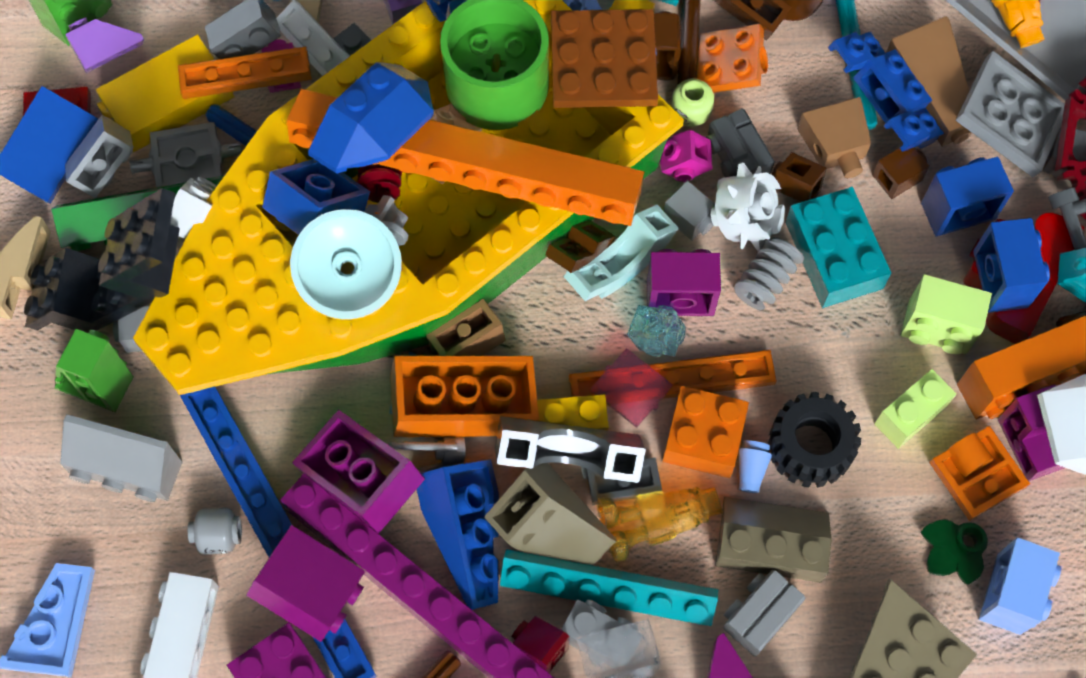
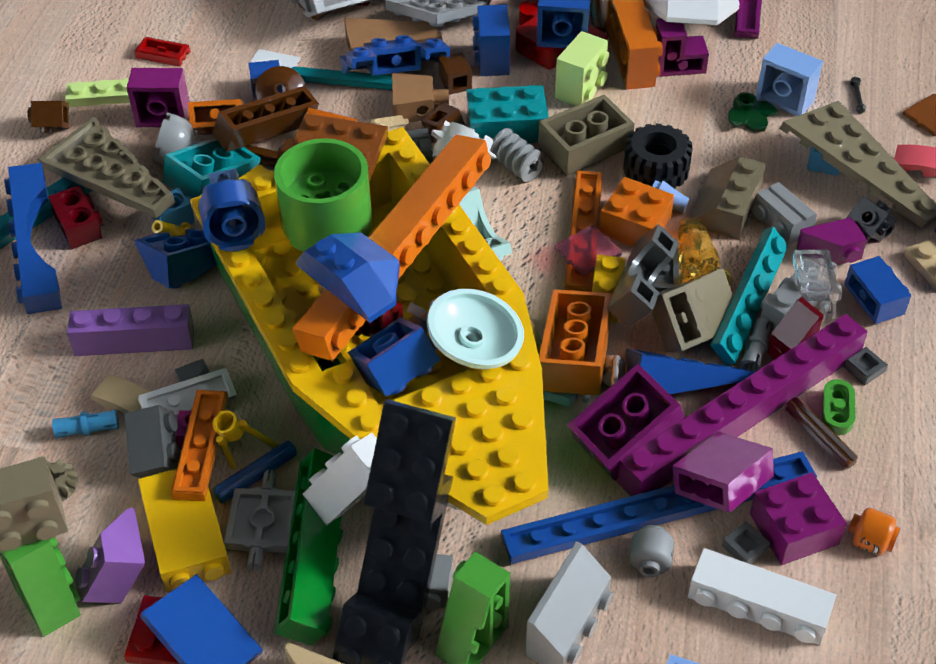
camera: 75 degrees left, 20 degrees down
(99, 156) = (243, 574): light grey brick -> none
(242, 627) = (746, 543): none -> dark grey plate
(261, 90) = (231, 429): none -> yellow plant
(532, 606) = (757, 344): none -> light grey pin
(657, 330) = (546, 222): clear light blue brick -> none
(684, 281) = (513, 195): magenta brick -> none
(729, 111) = (392, 122): none -> tan axle
(826, 344) = (585, 134): none -> dark tan brick
(915, 408) = (644, 102): yellowish green brick -> none
(979, 472) = (698, 88): orange plate -> none

